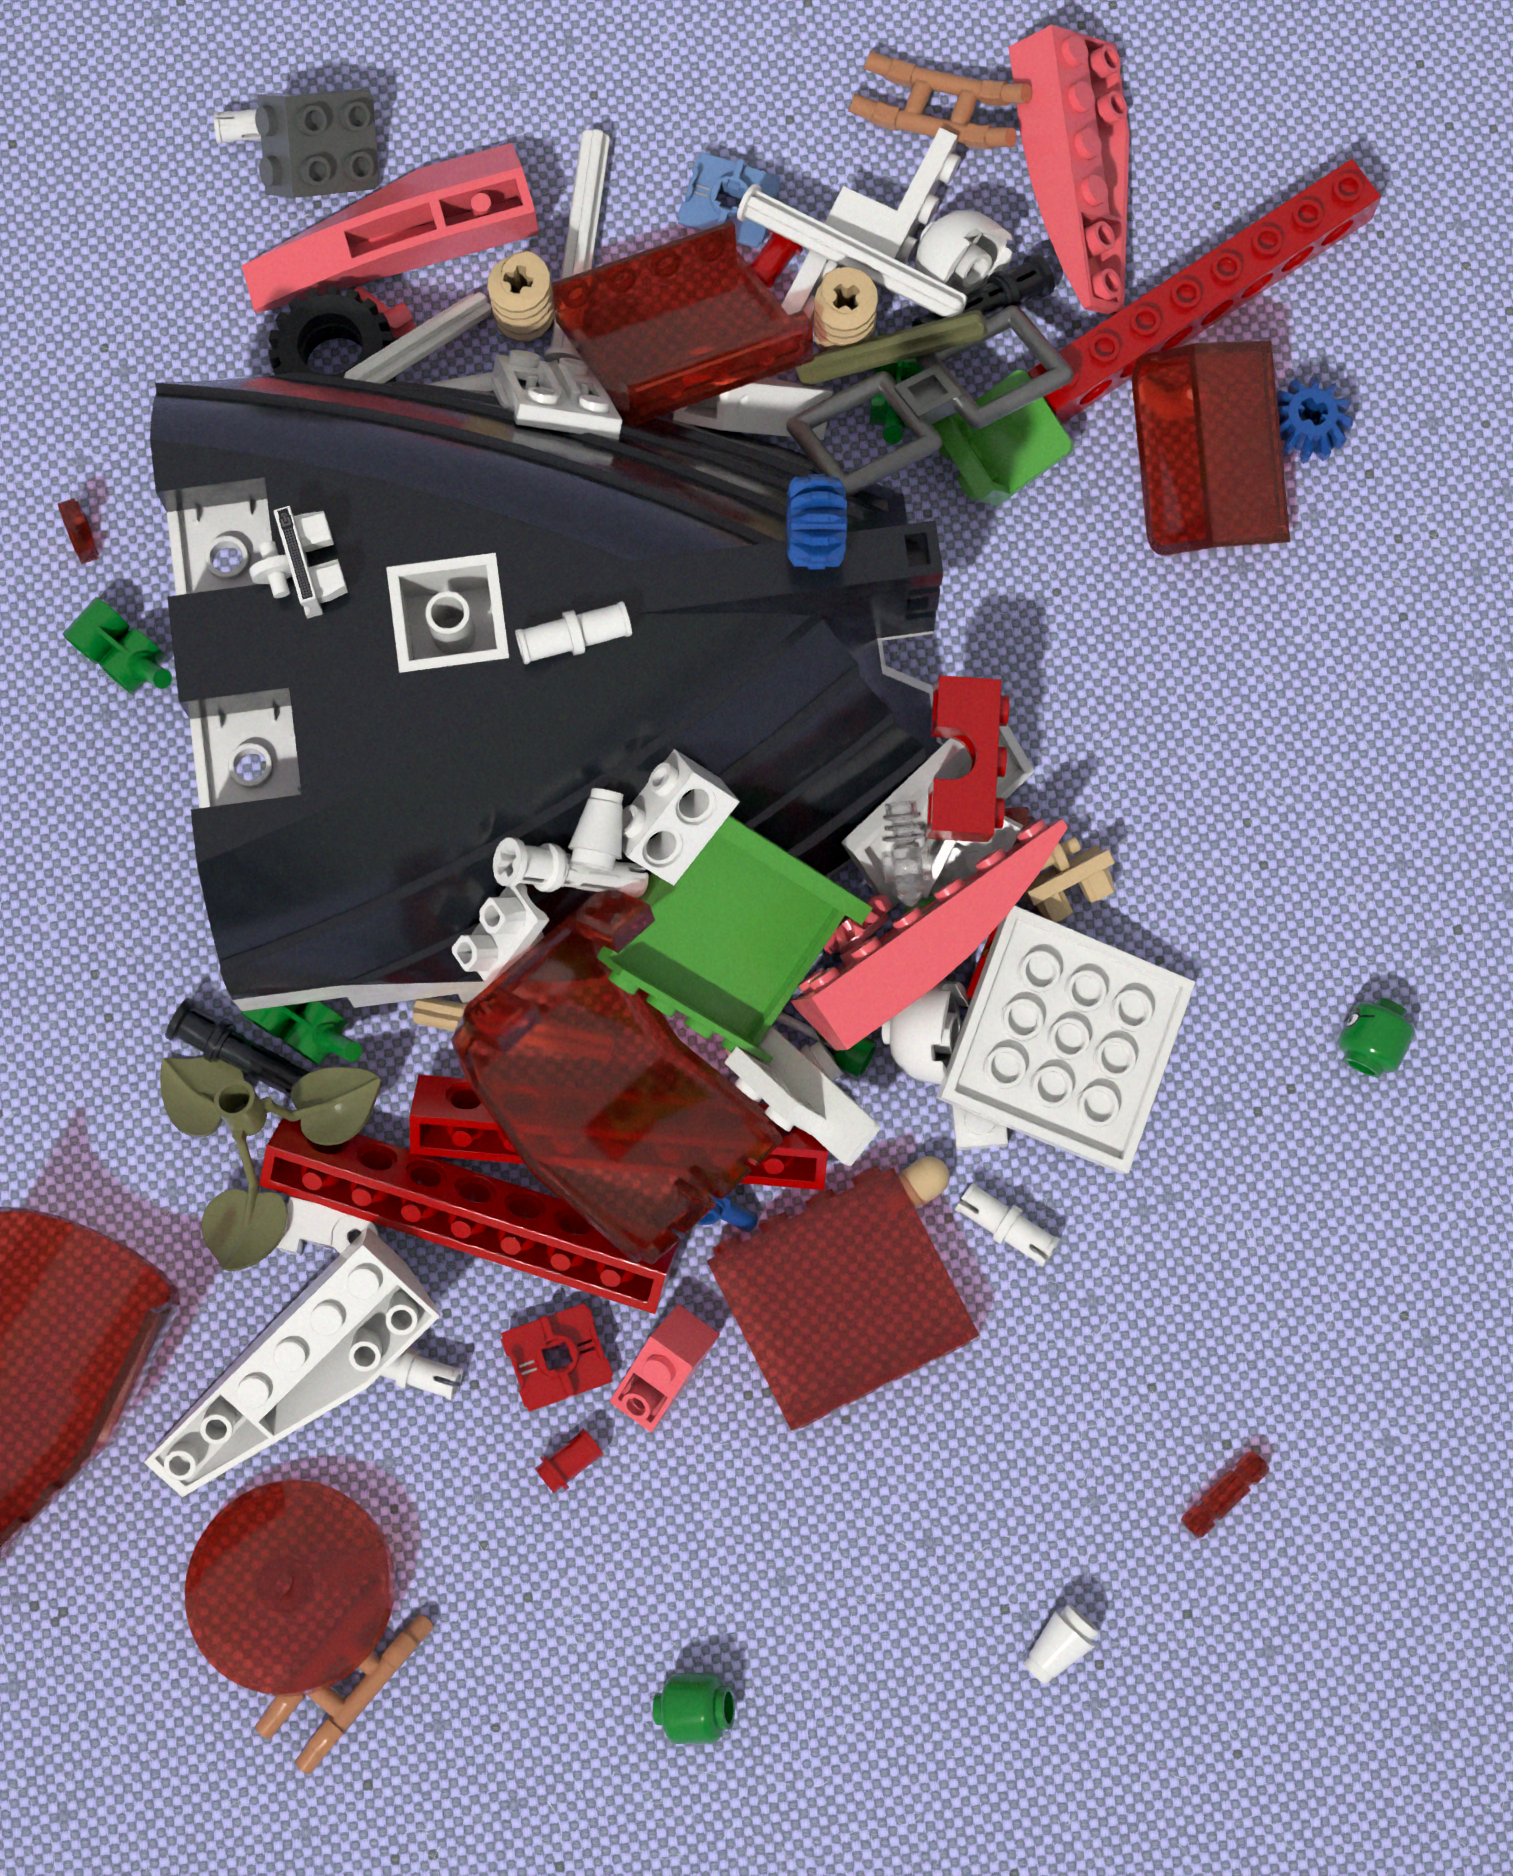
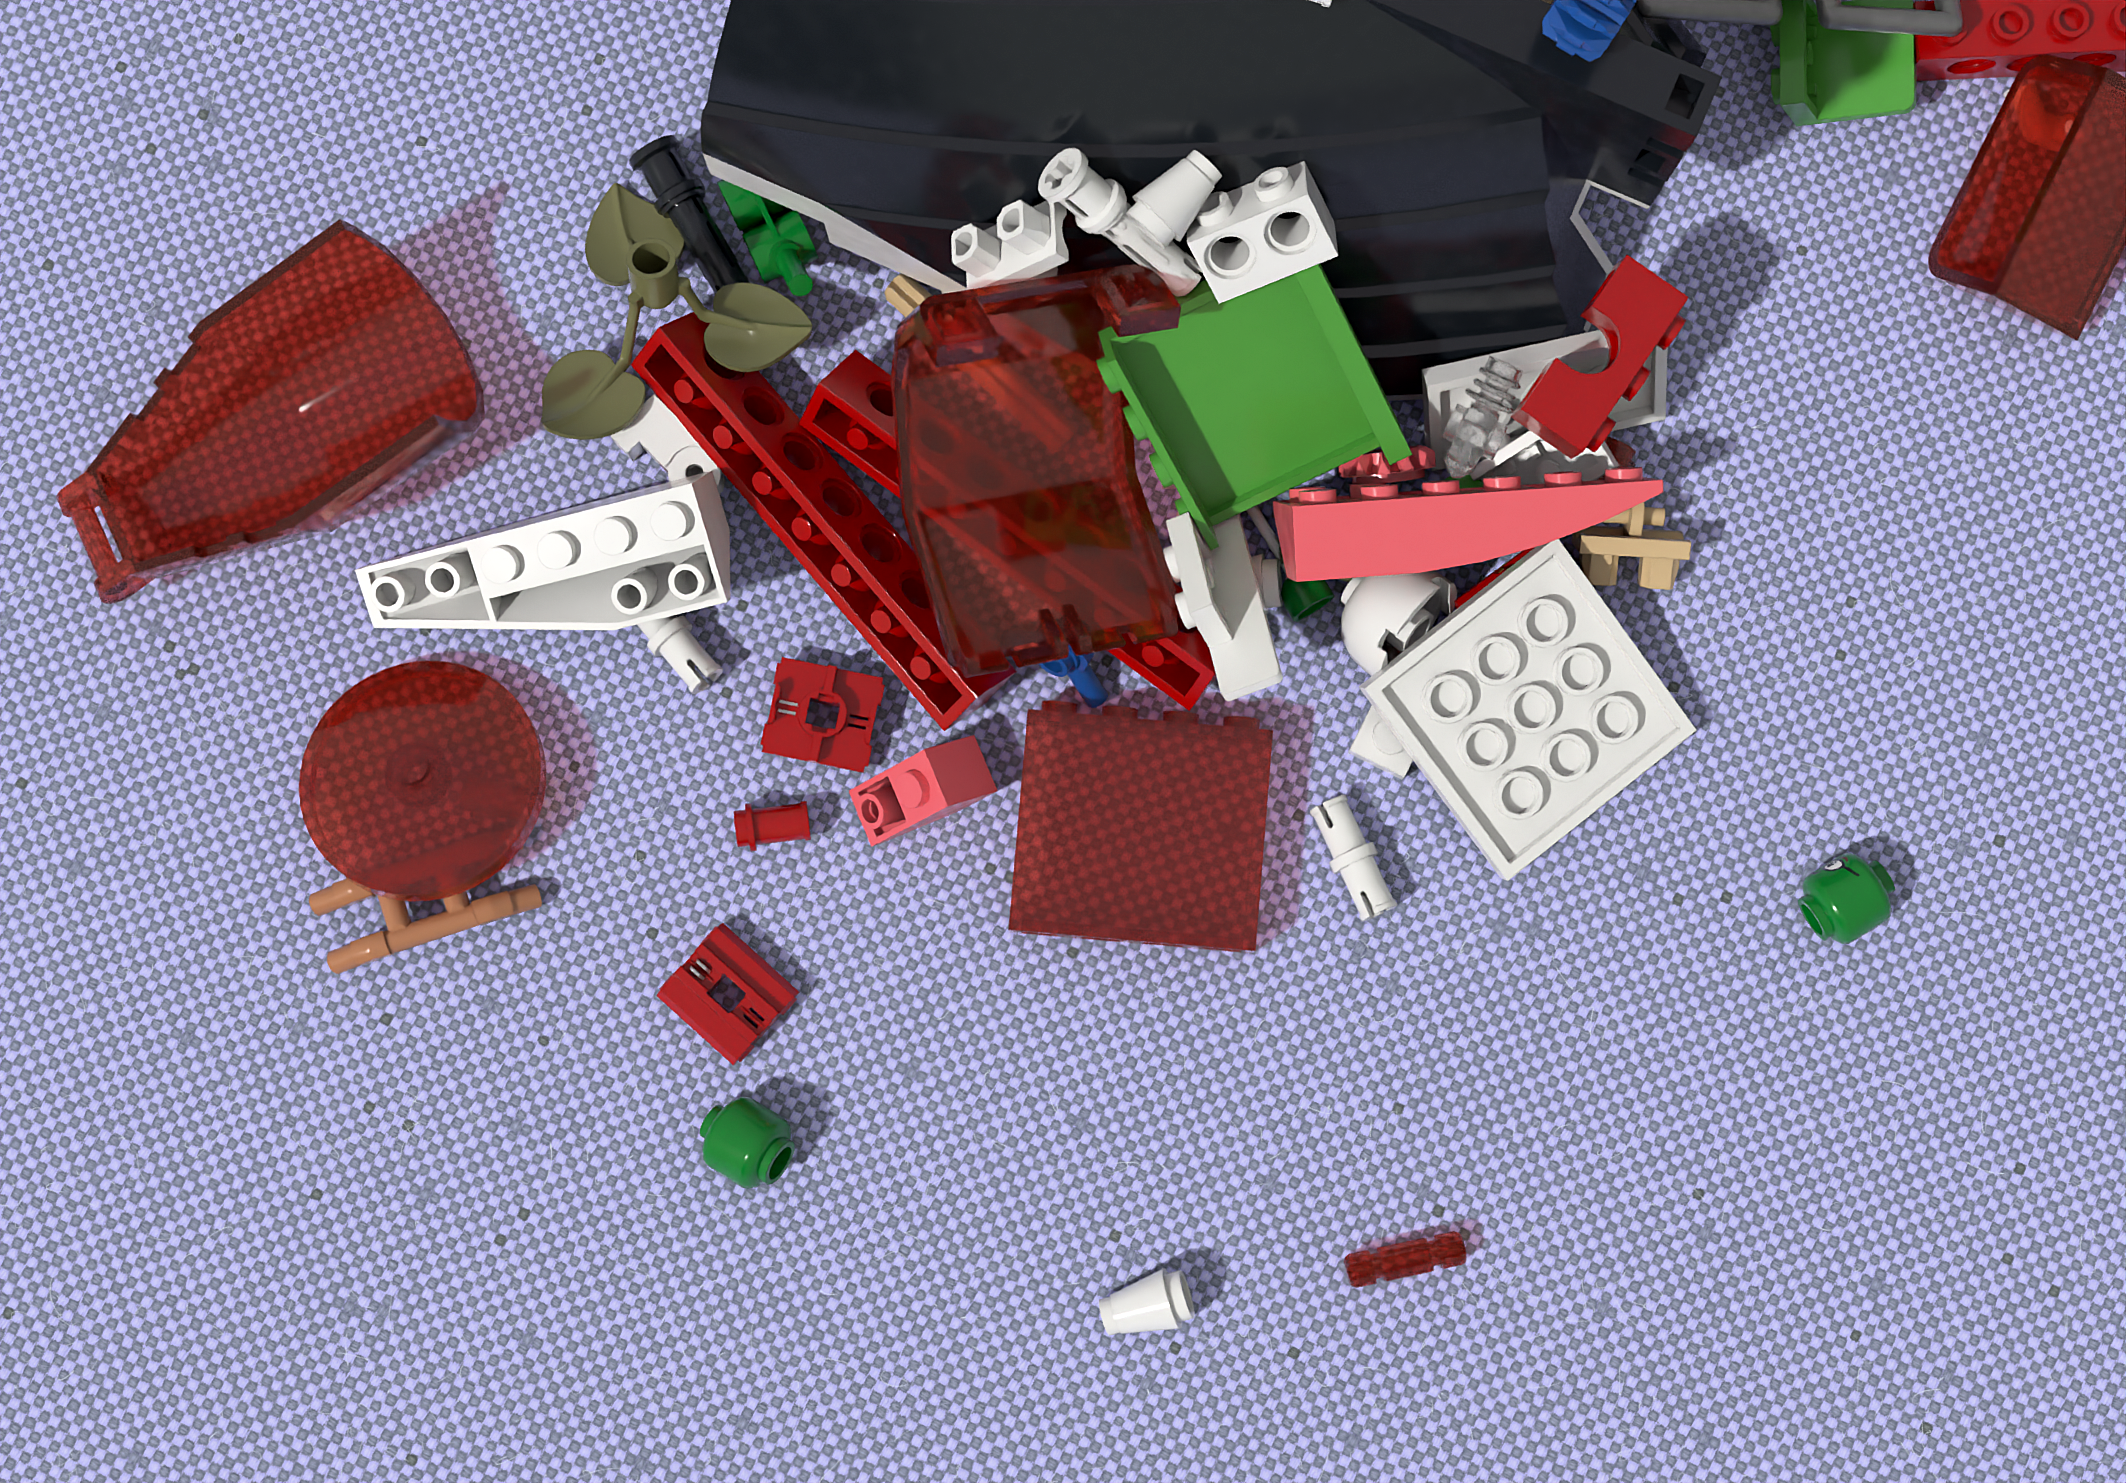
camera: 30 degrees right, 5 degrees up
(581, 1619) = (691, 986): none -> red piece
(925, 1179) = (1297, 762): tan cylinder -> none

